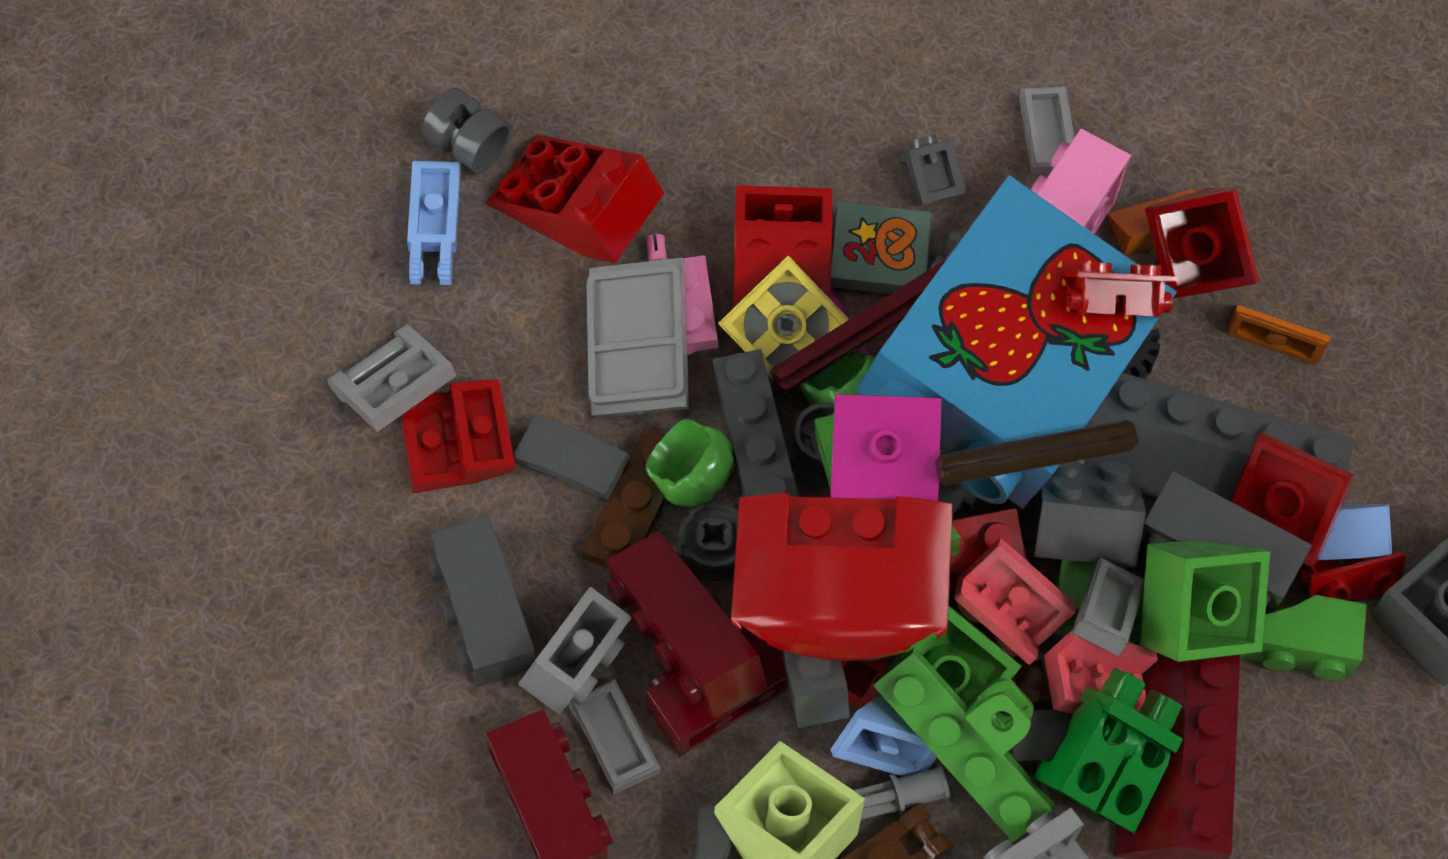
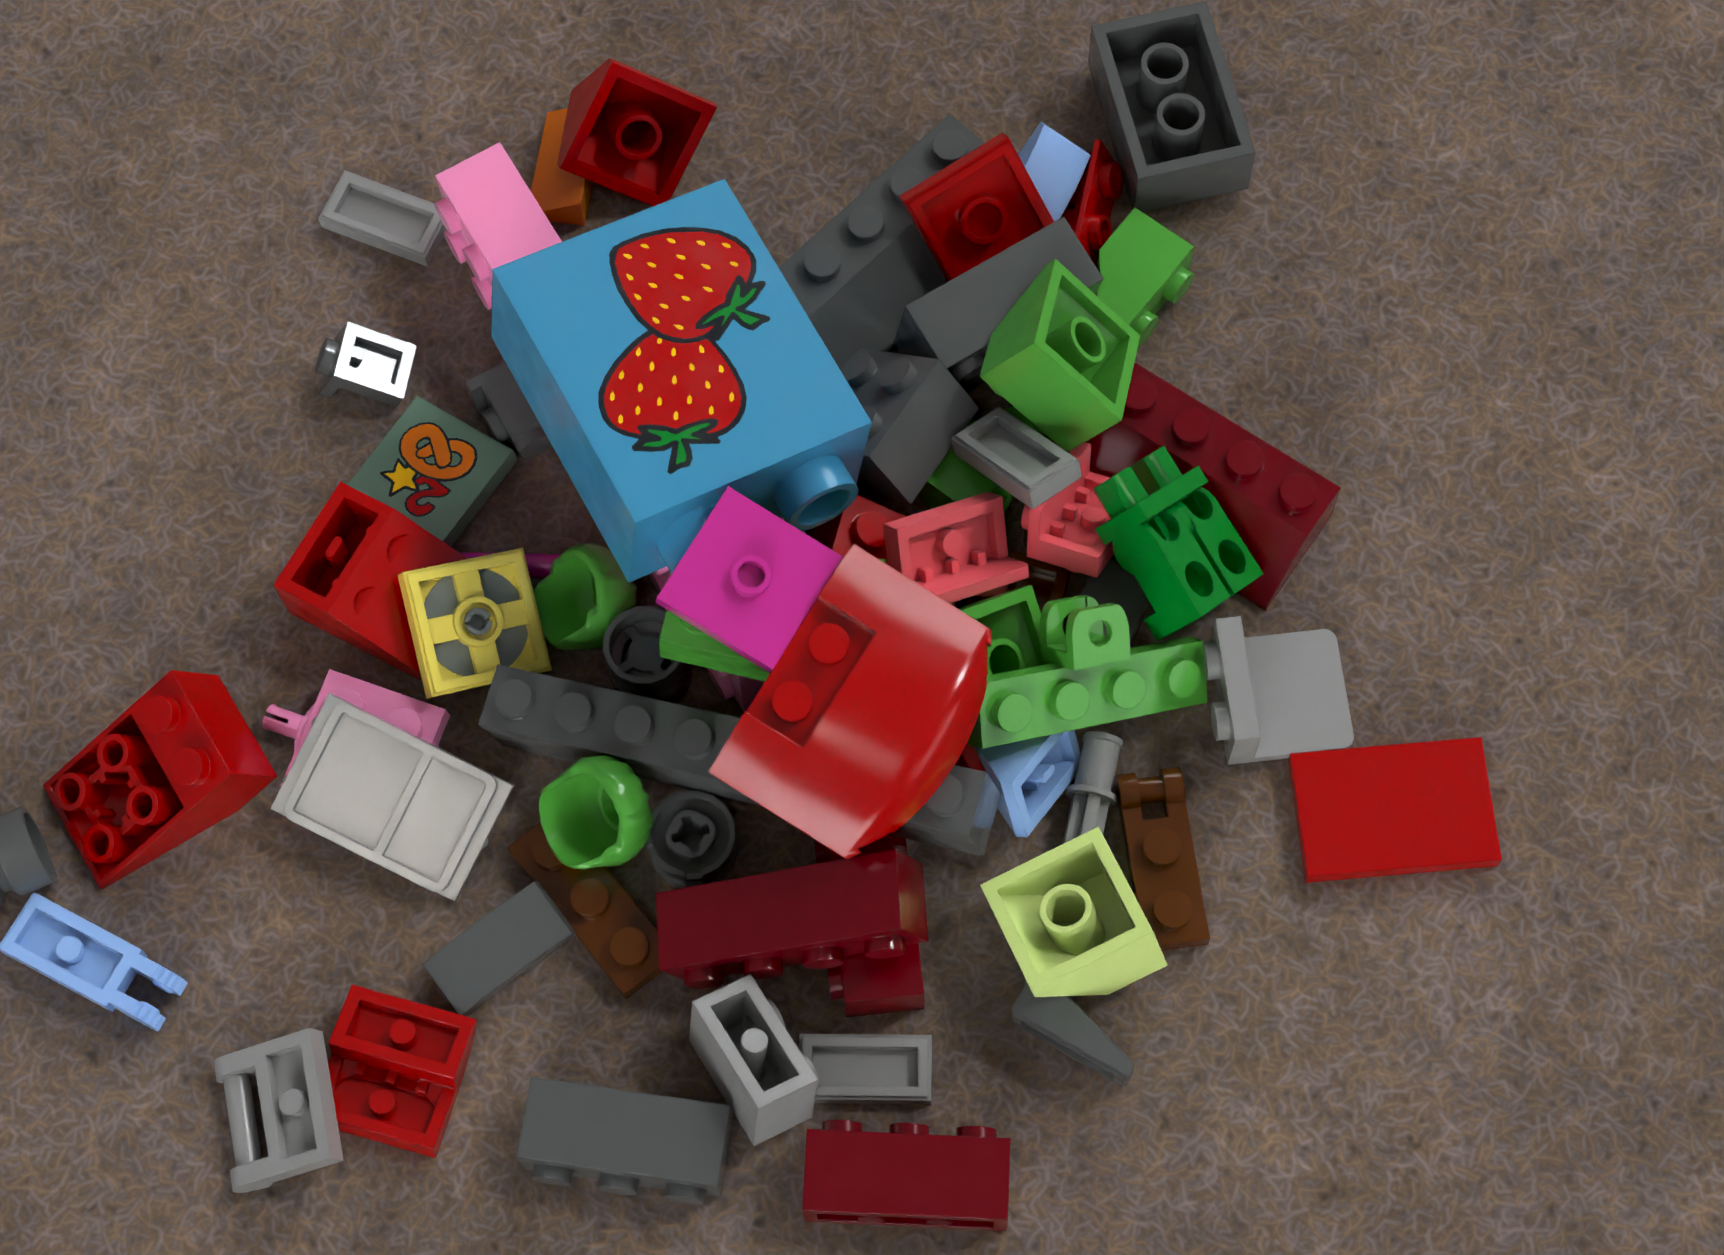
camera: 55 degrees left, 5 degrees up
(850, 334) = (532, 532): dark red axle -> none
(1036, 452) = (843, 424): dark brown axle -> none
(1141, 290) = (681, 247): hinge -> none
(1277, 334) = (771, 122): orange slope -> none

